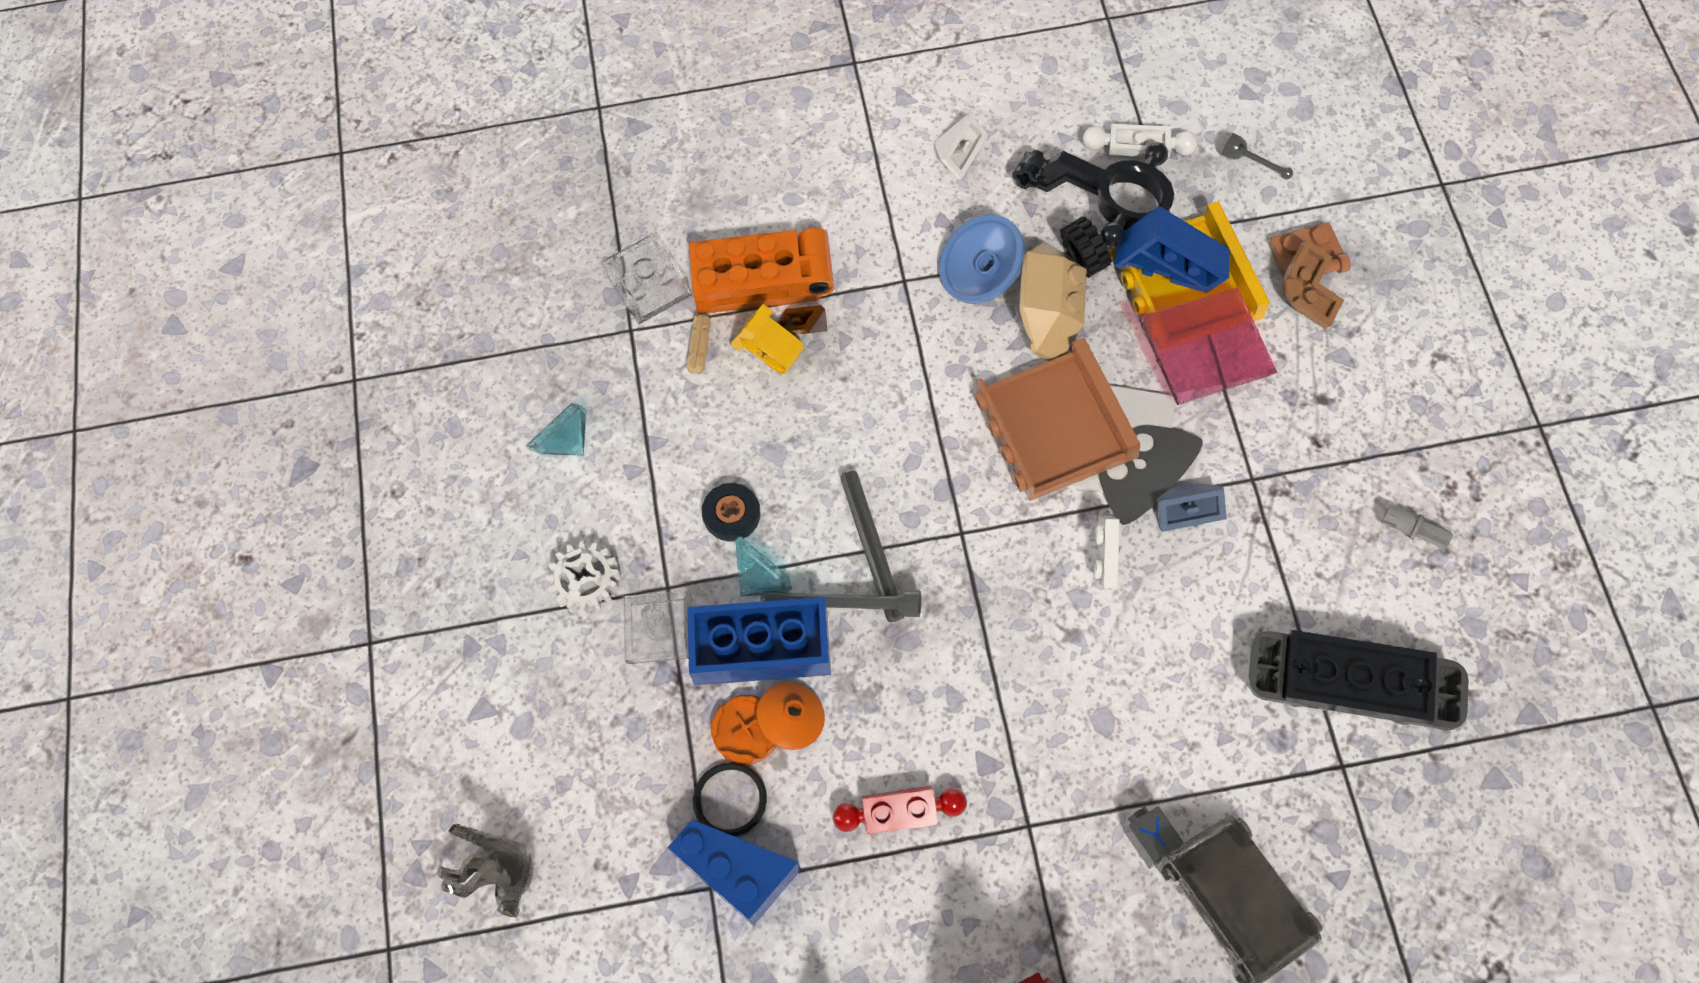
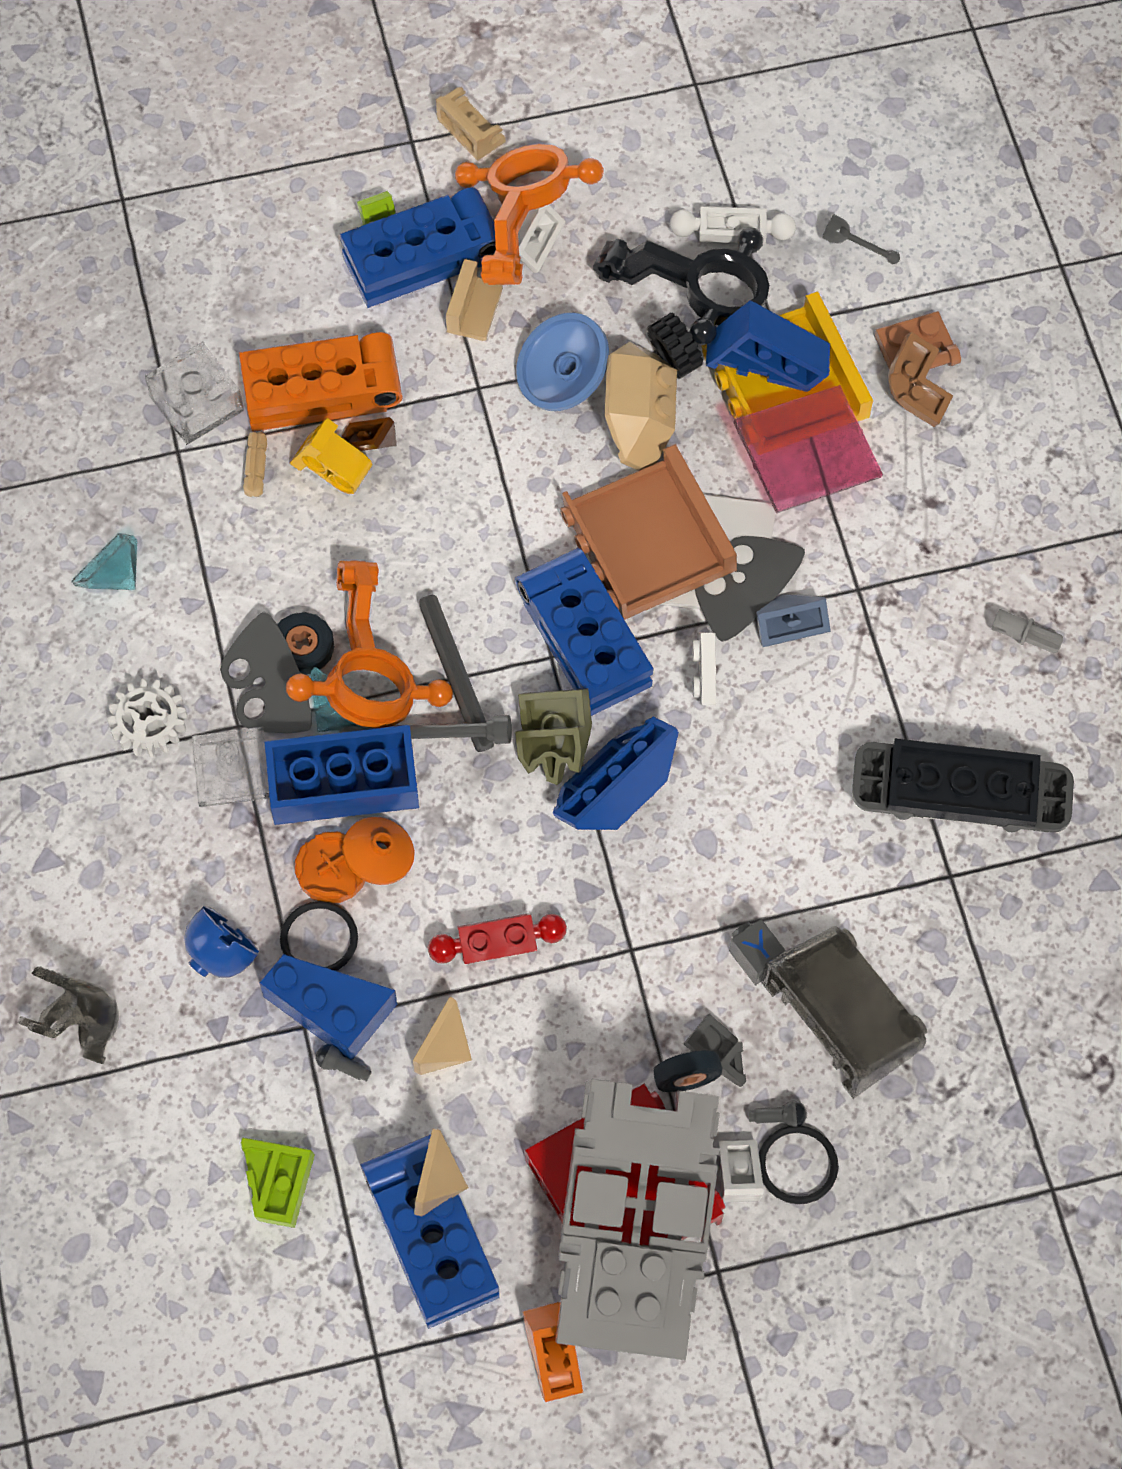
camera: 10 degrees left, 0 degrees up
(631, 805) = (217, 946): none -> blue cylinder
(711, 556) = (272, 660): none -> dark grey piece
(733, 923) = (331, 1058): none -> dark grey piece
(786, 455) = (360, 581): none -> orange piece
(821, 123) = (376, 207): none -> lime tile
(844, 915) = (445, 1042): none -> tan slope
(858, 153) = (418, 246): none -> blue hinge
(902, 205) = (472, 304): none -> tan panel
(904, 48) = (468, 124): none -> tan hinge
(944, 115) = (505, 265): none -> orange piece
(961, 607) = (554, 731): none -> olive plate
(985, 464) = (571, 603): none -> blue hinge
(1021, 656) = (618, 778): none -> blue wedge
(1082, 960) = (687, 1071): none -> black bush
(1112, 934) = (714, 1037): none -> dark grey slope

